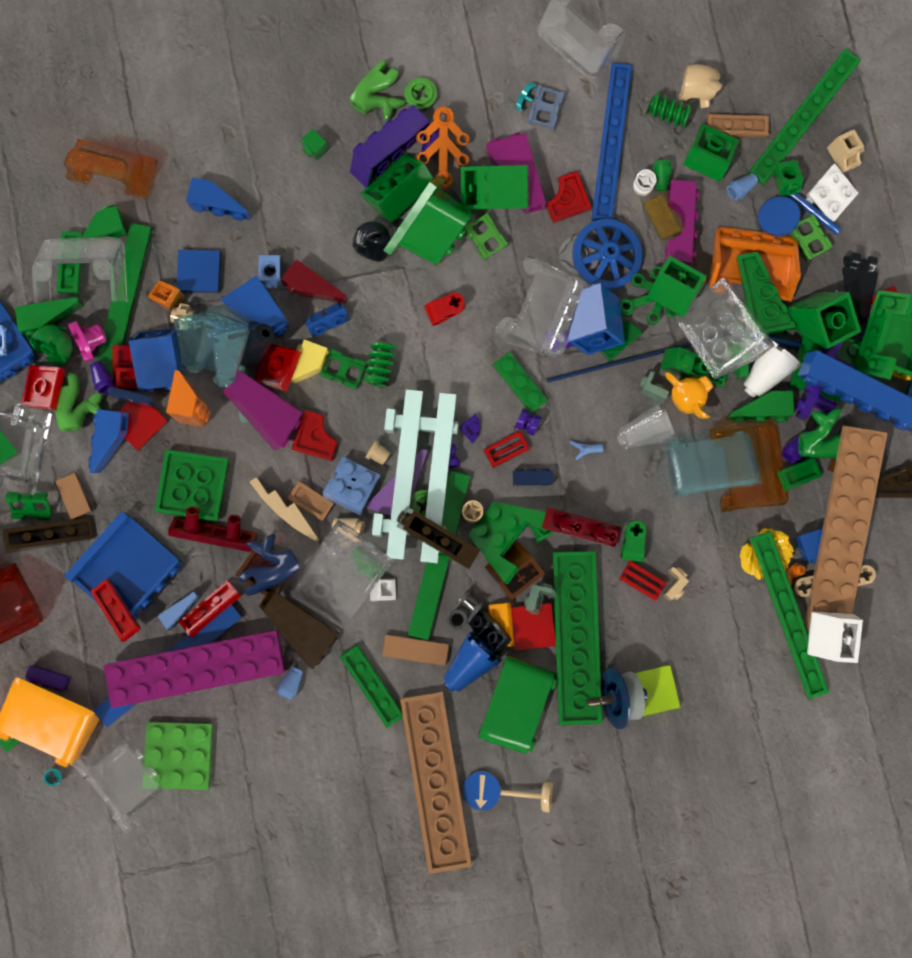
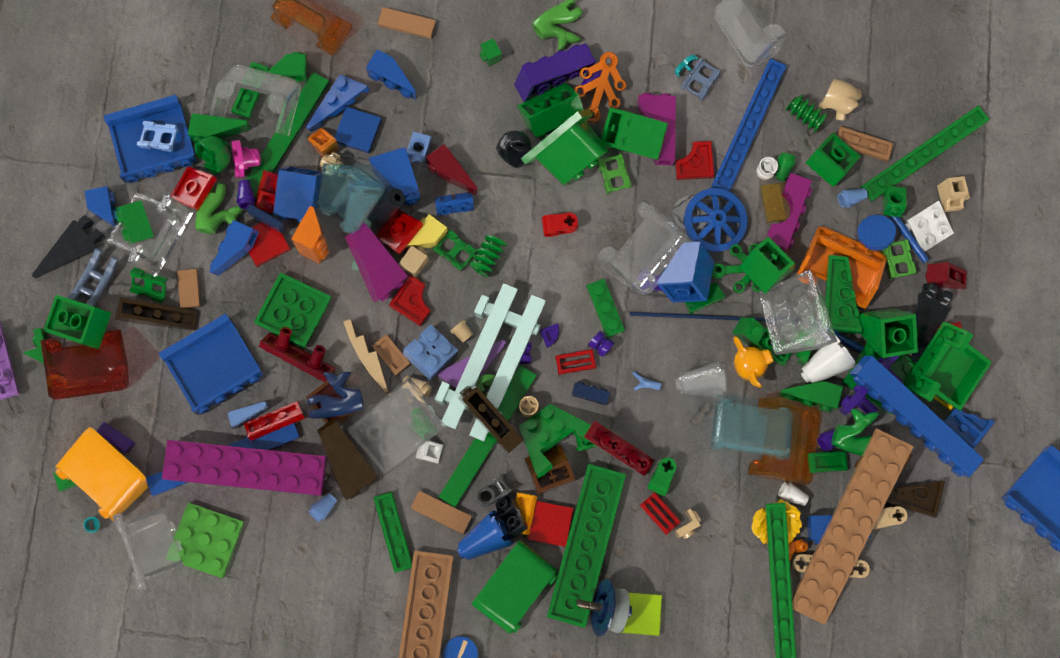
camera: 15 degrees right, 5 degrees down
(115, 610) = (192, 396): red tile -> none
(166, 244) = (338, 97): none -> blue wing
(214, 139) = (406, 23): none -> medium nougat tile
(303, 394) = (414, 261): none -> tan brick
(418, 85) = (595, 28): bright green gear -> none
(534, 599) = (560, 498): sand green bracket -> none
(654, 391) = (722, 351): sand green bracket -> none
(773, 519) = (792, 494): none -> white cone
(835, 636) = (814, 613): white slope -> none
(864, 240) = (946, 275): none -> dark red slope
(878, 514) = (886, 517): none -> tan piece

